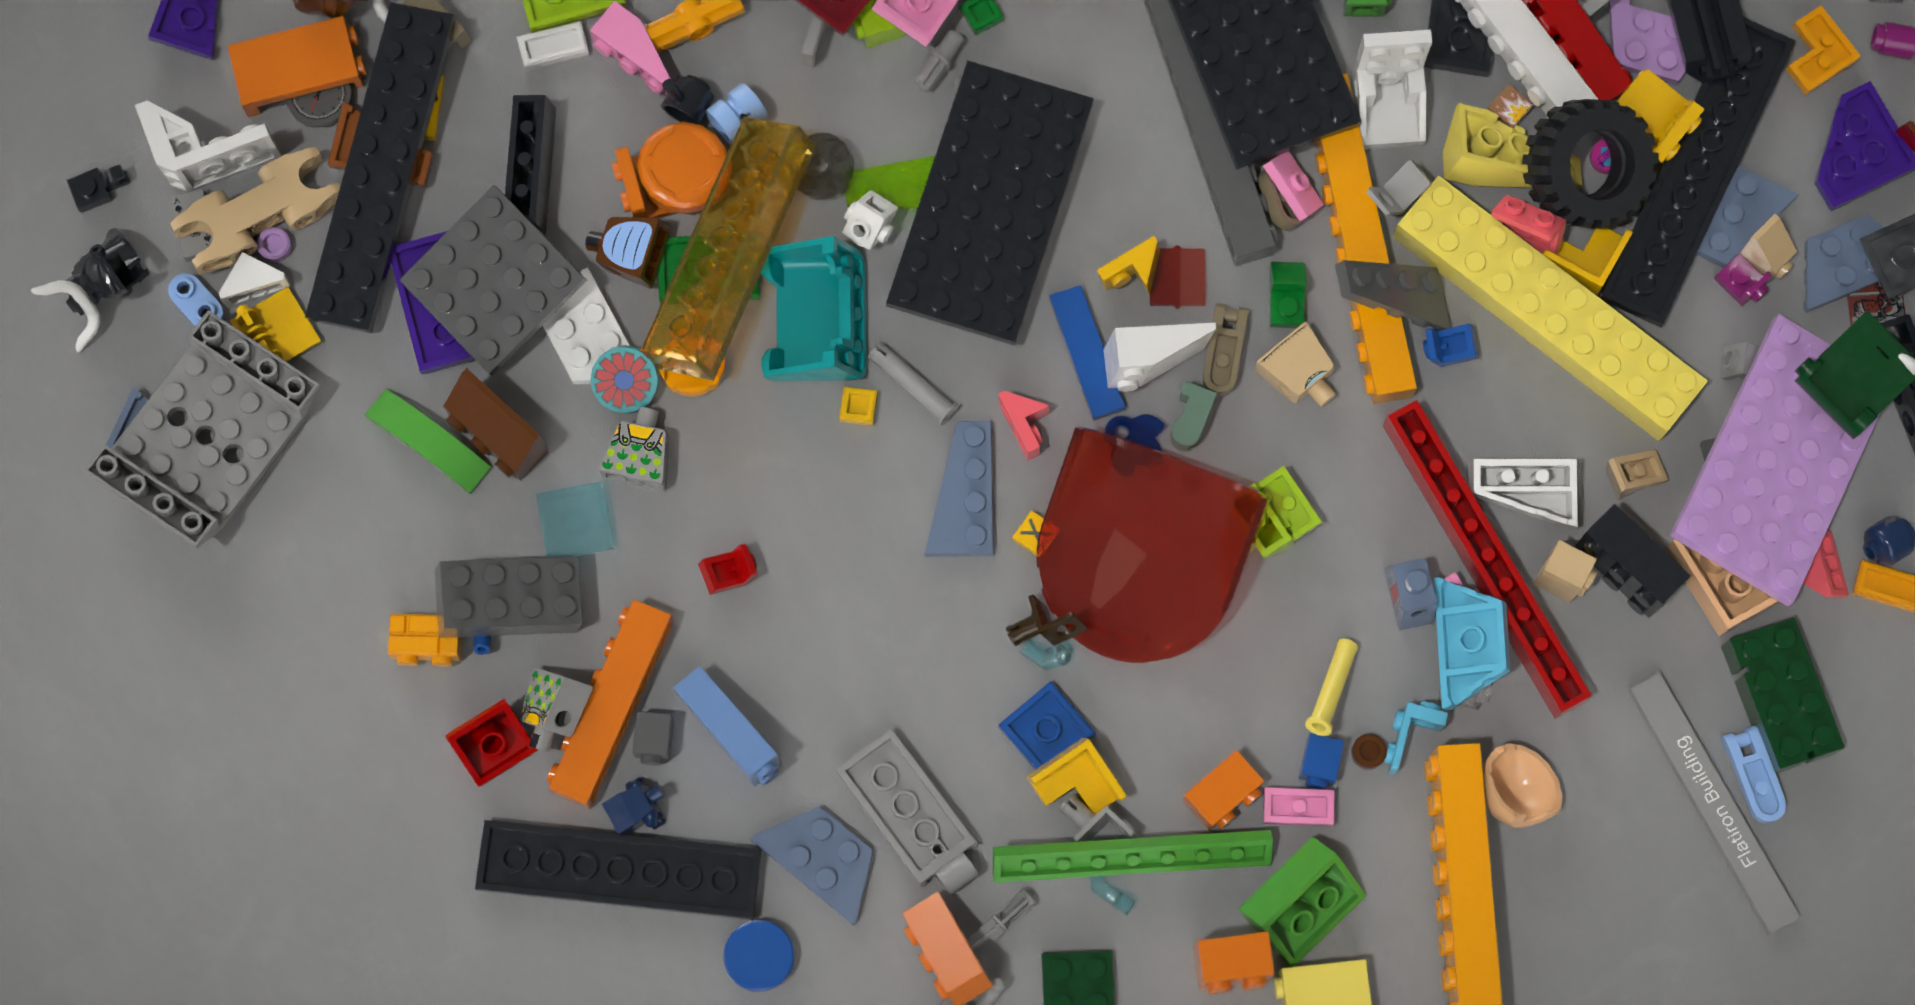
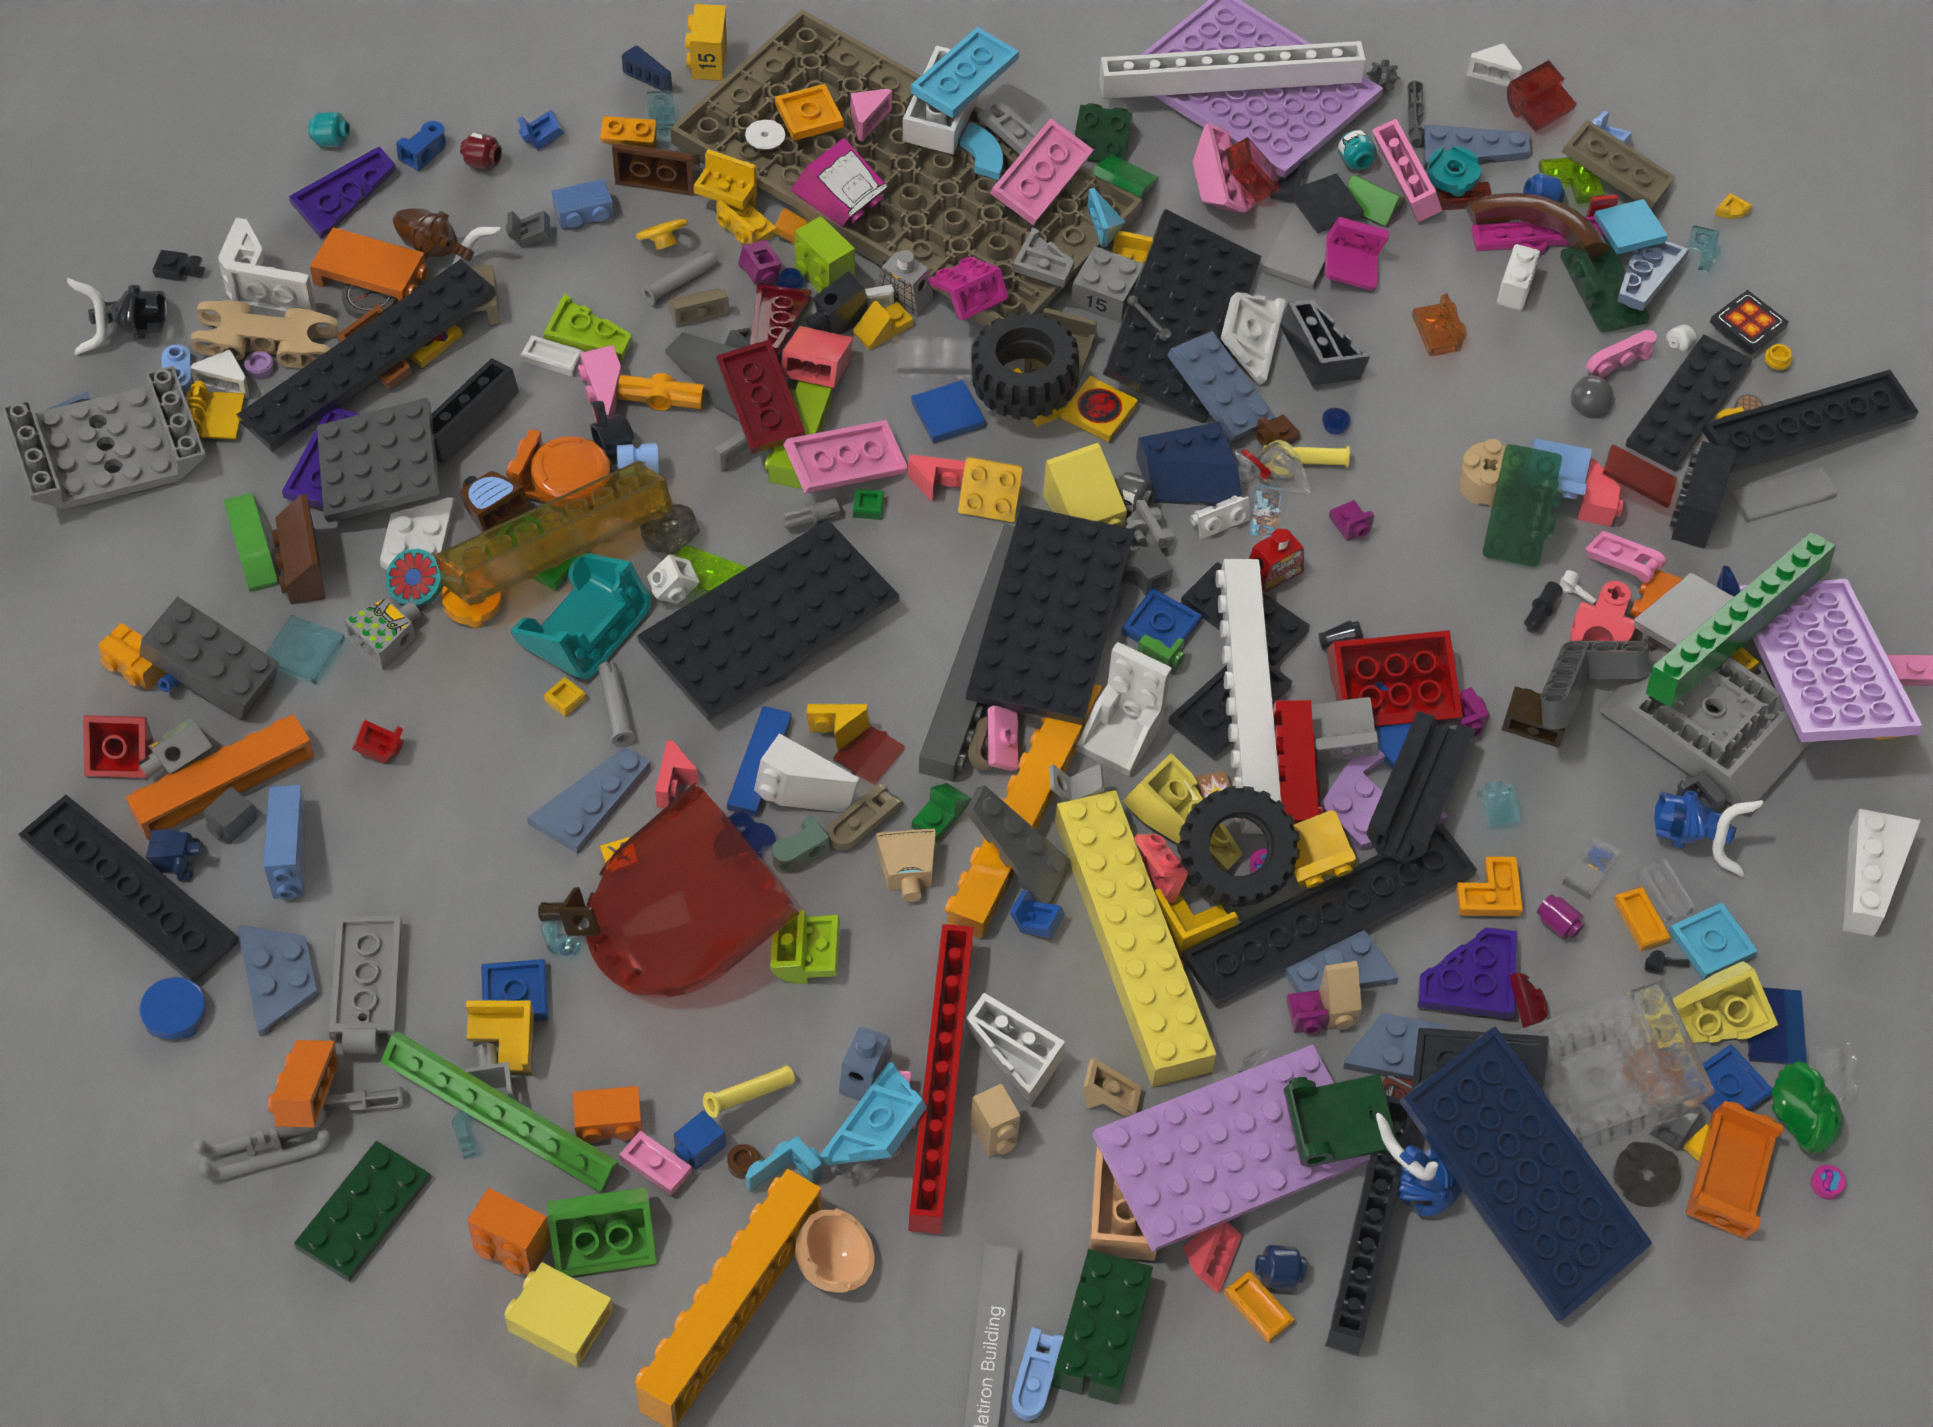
camera: 30 degrees right, 20 degrees down
(1632, 561) = (1053, 1146): black brick -> none

